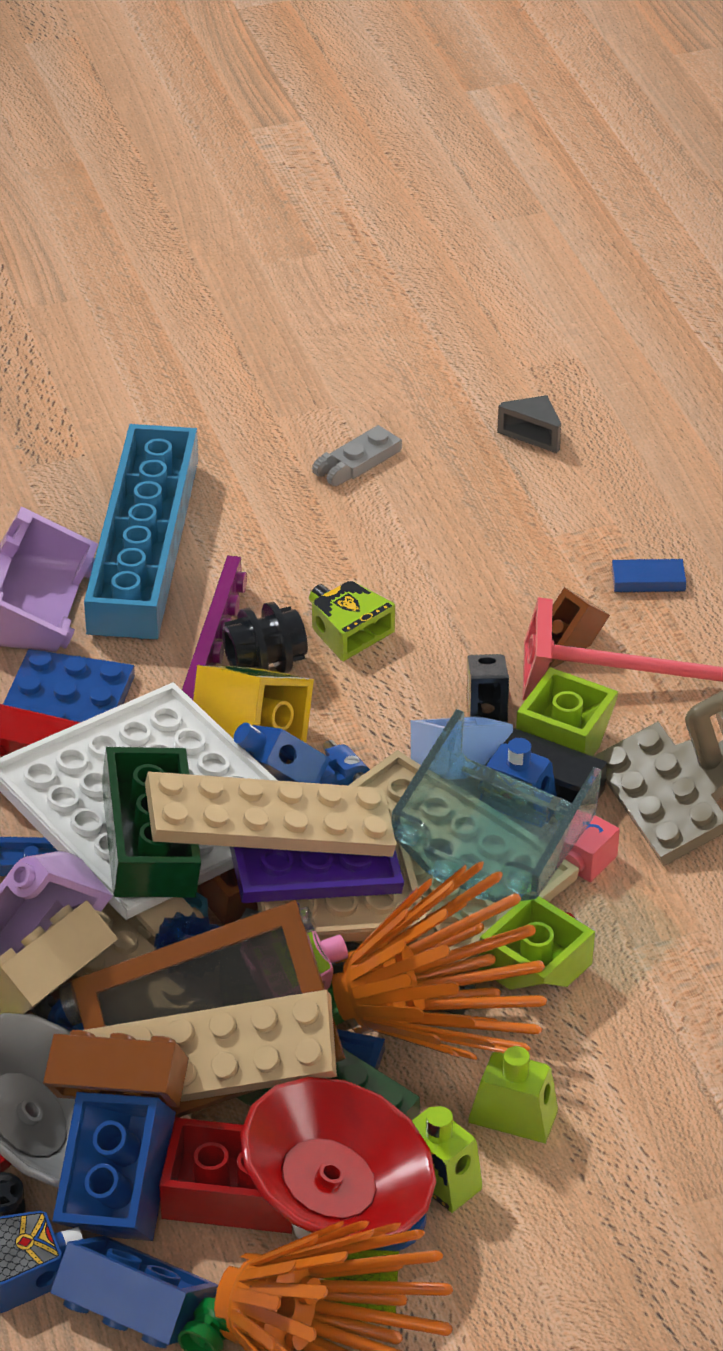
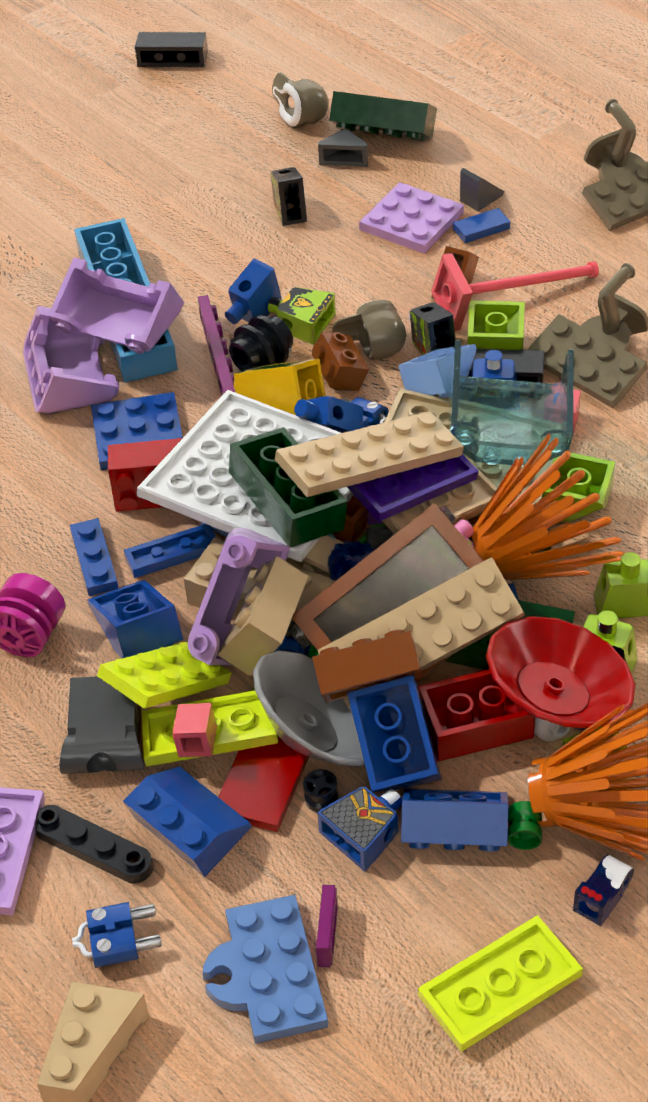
camera: 20 degrees left, 5 degrees up
(104, 537) = (114, 308): none -> lavender windscreen
(296, 571) = (252, 292): none -> blue torso
(350, 692) = (340, 361): none -> dark orange brick
(357, 456) = (237, 206): light grey hinge -> none
(402, 225) = (171, 49): none -> black brick
(422, 451) = (289, 188): none -> black torso
(422, 660) = (383, 329): none -> dark tan piece
(517, 341) = (308, 96): none -> dark tan piece
(566, 537) = (411, 217): none -> lavender plate
(603, 393) = (383, 114): none -> dark green brick
(671, 528) = (476, 191): none -> dark grey slope

